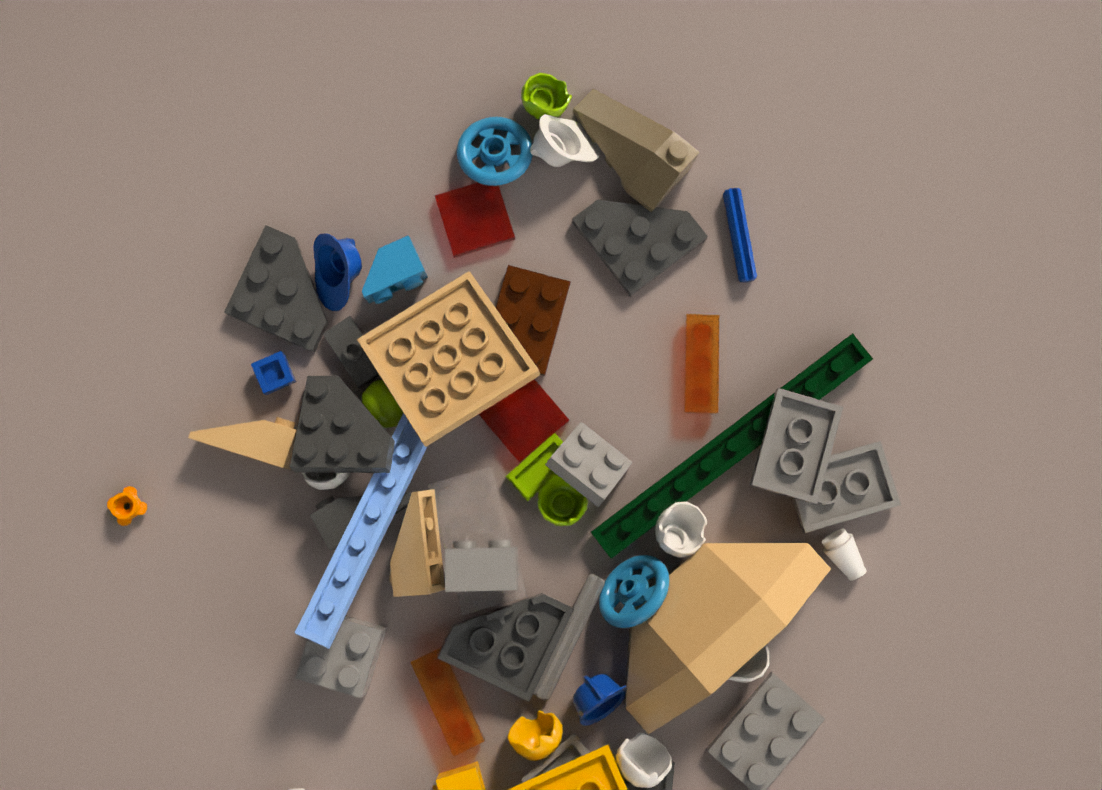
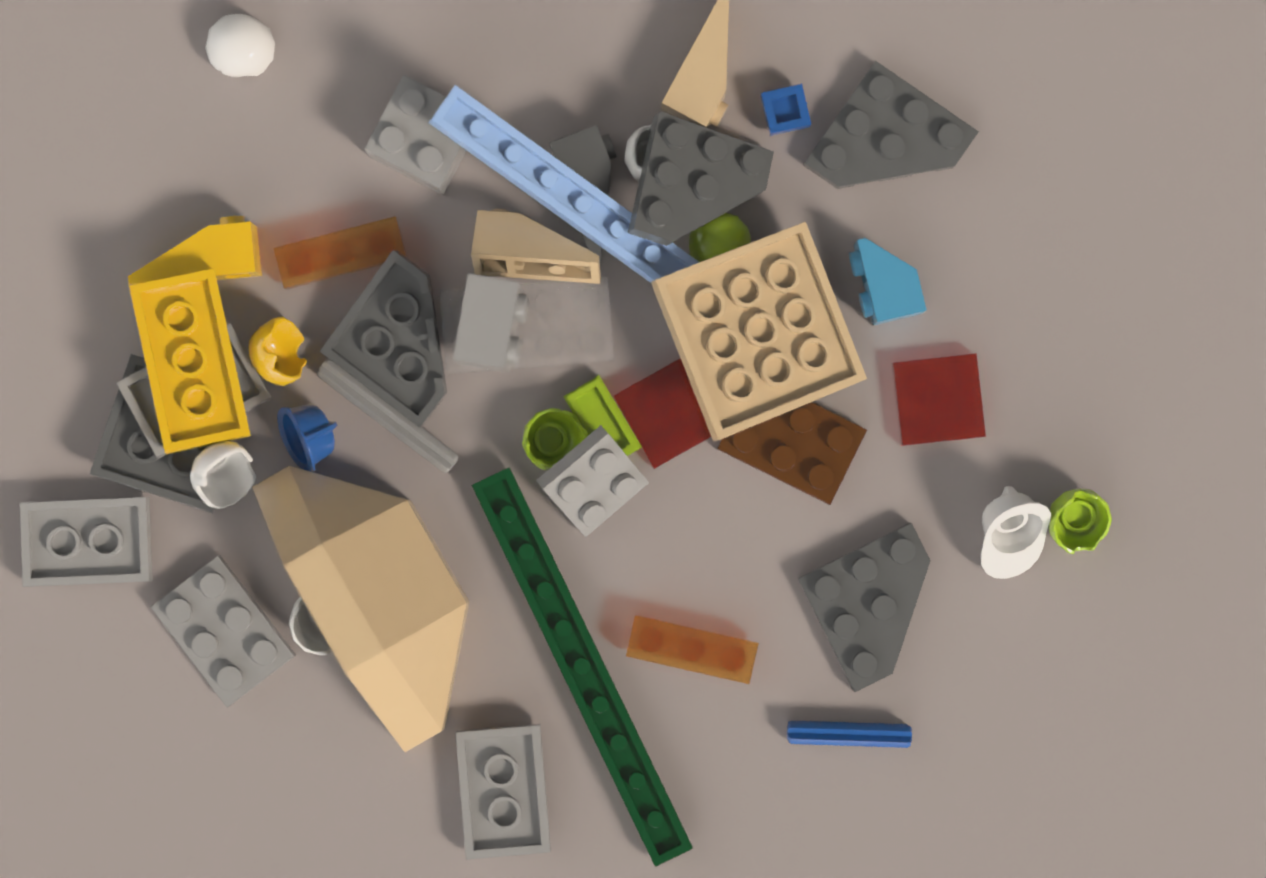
camera: 100 degrees right, 5 degrees up
(335, 268) = (904, 210): blue piece -> none
(346, 346) = (806, 205): dark grey plate -> none
(485, 129) = (1053, 435): dark azure plate -> none
(634, 591) = (425, 504): dark azure plate -> none
(639, 149) = (985, 626): dark tan wedge -> none
(681, 529) = (489, 577): white hair -> none
(796, 446) = (563, 743): light grey plate -> none
(844, 553) = (420, 776): white cone -> none

